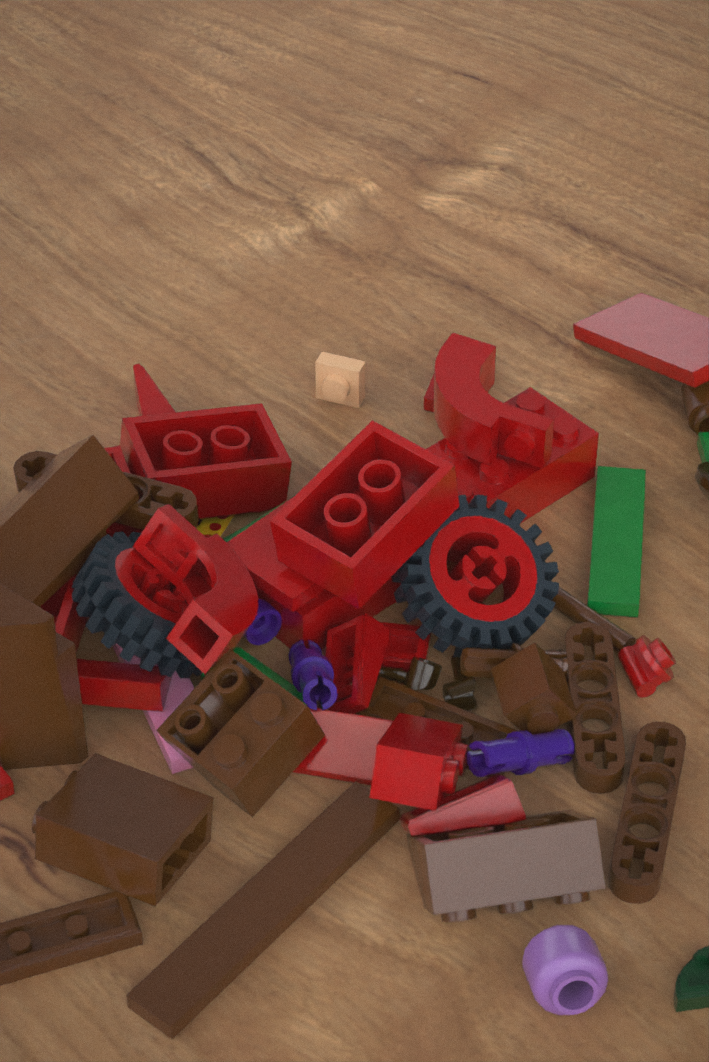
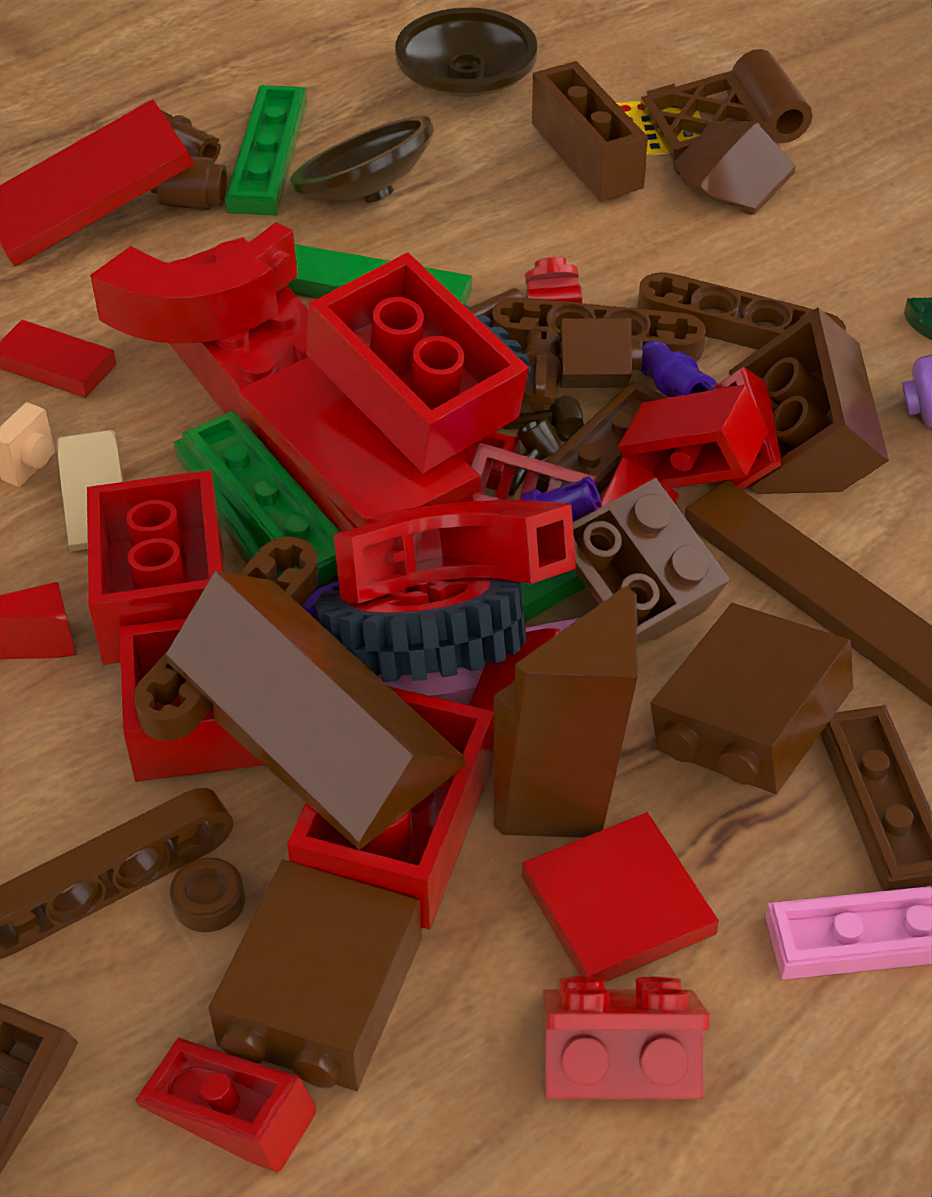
camera: 80 degrees left, 5 degrees up
(316, 426) = (85, 462): none -> tan slope

